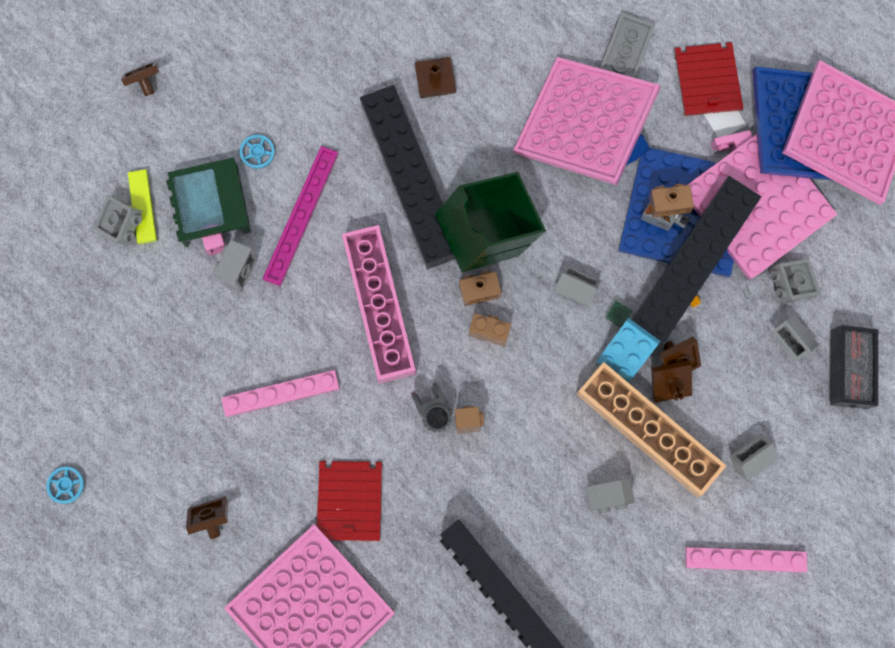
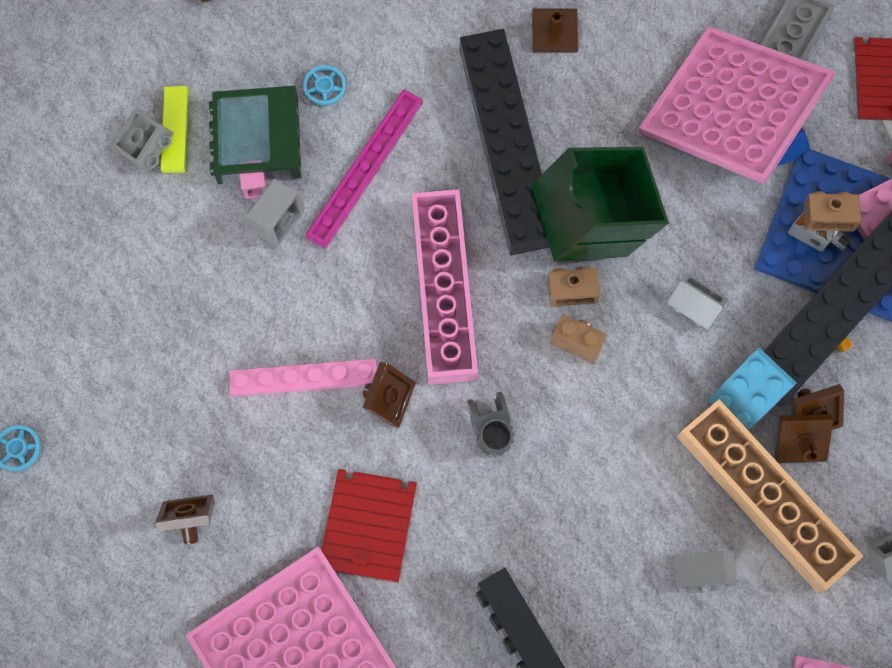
camera: 10 degrees right, 5 degrees down
(349, 397) = (388, 394): none -> reddish brown tile
(468, 419) = (535, 445): medium nougat brick -> none
(618, 314) = (744, 344): clear green plate -> none

